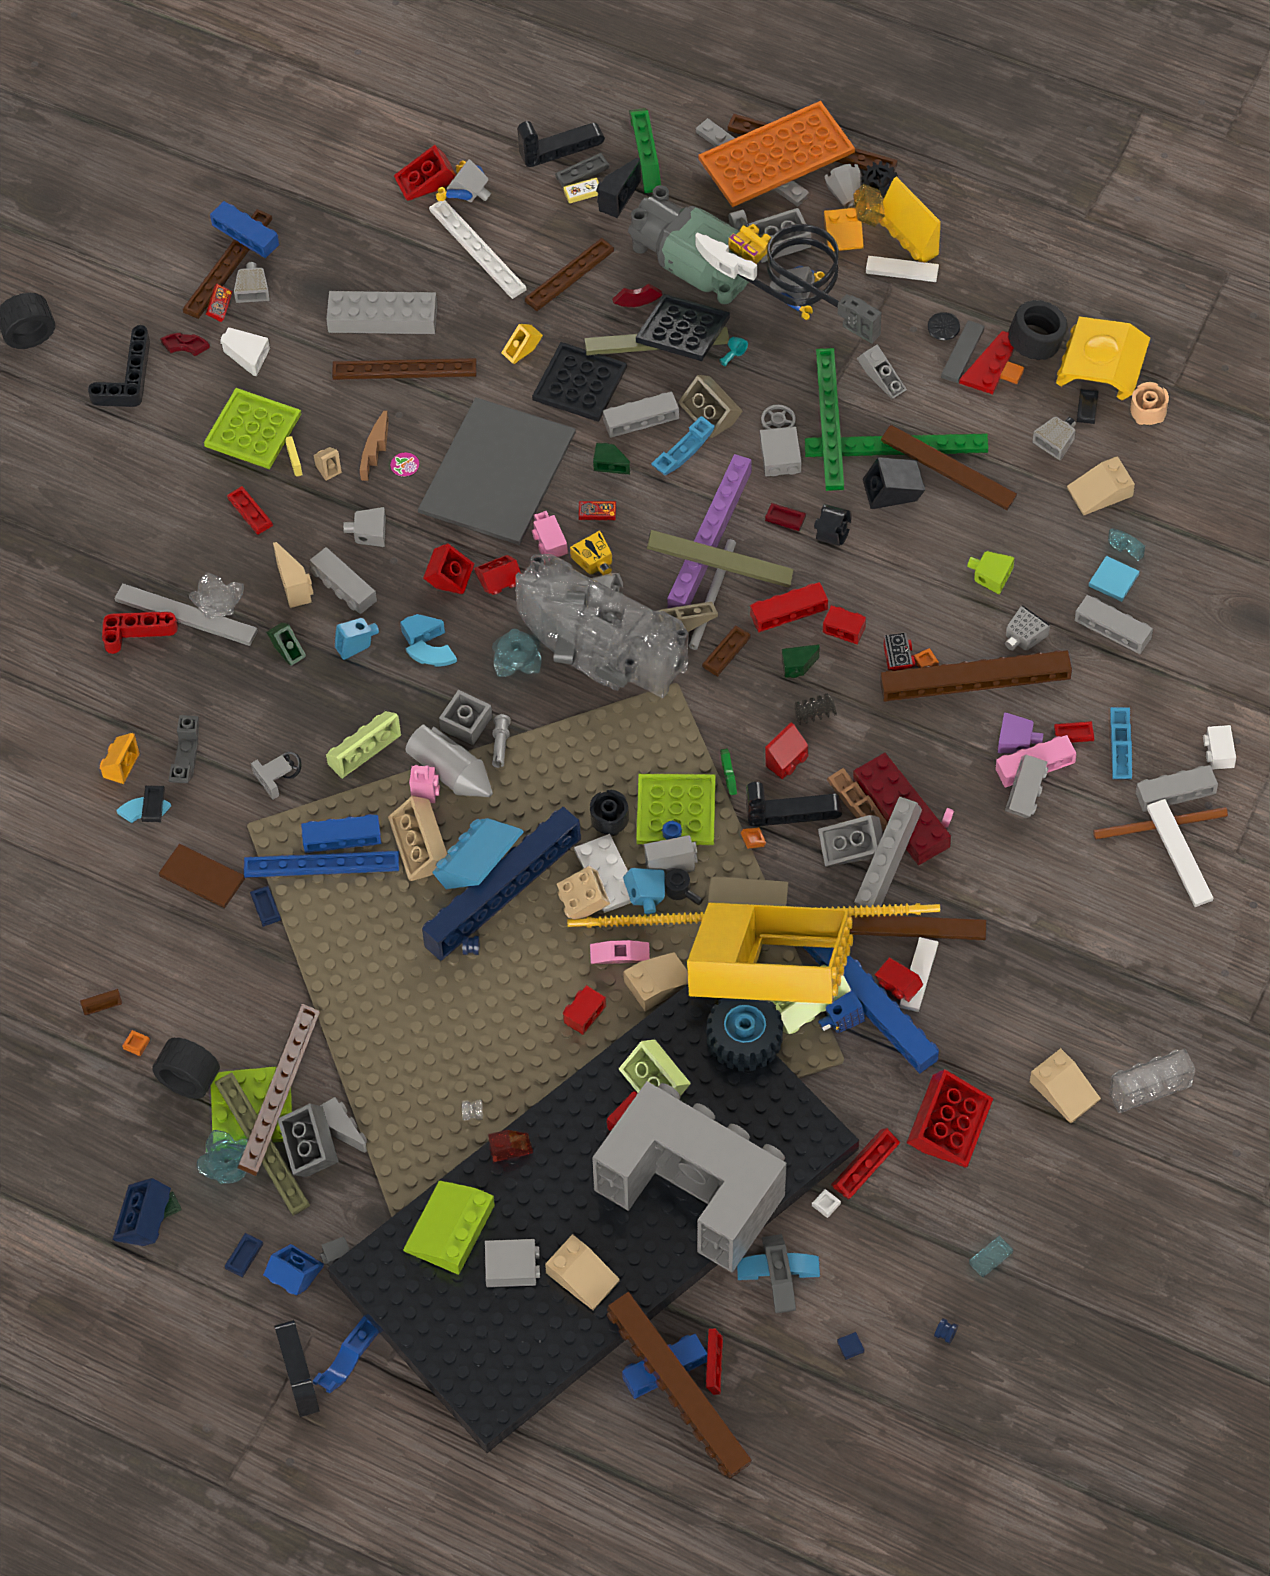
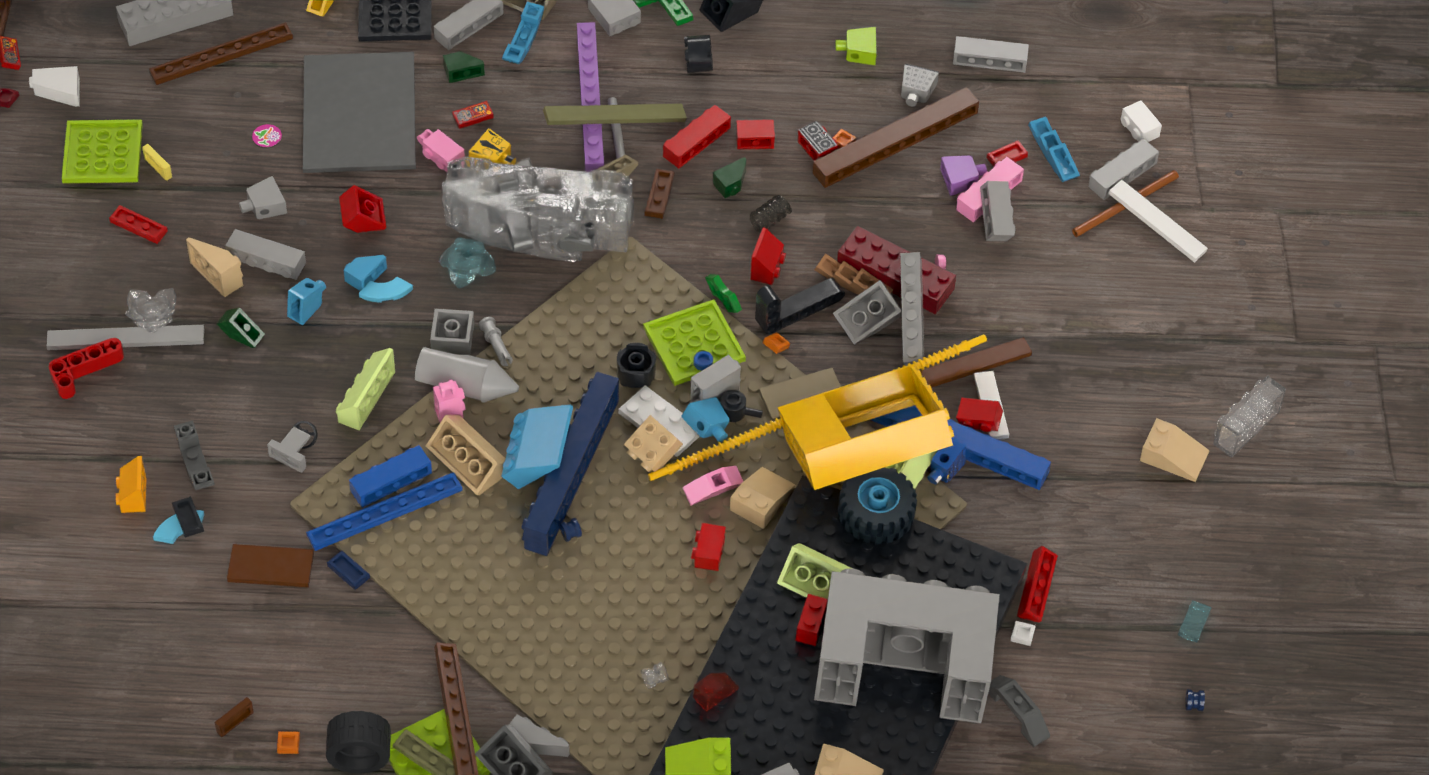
camera: 30 degrees left, 5 degrees down
(251, 284) = (33, 26): light grey torso -> none
(328, 463) = (194, 155): tan slope -> none
(376, 442) = (232, 125): medium nougat slope -> none
(498, 574) = (412, 198): red slope -> none
(785, 517) = (648, 63): dark red tile -> none
(800, 1264) = (998, 710): dark azure slope -> none
(850, 1345) = (1116, 748): dark blue tile -> none
(950, 1119) = (1091, 517): red slope -> none
(1114, 578) = (967, 18): medium azure tile -> none

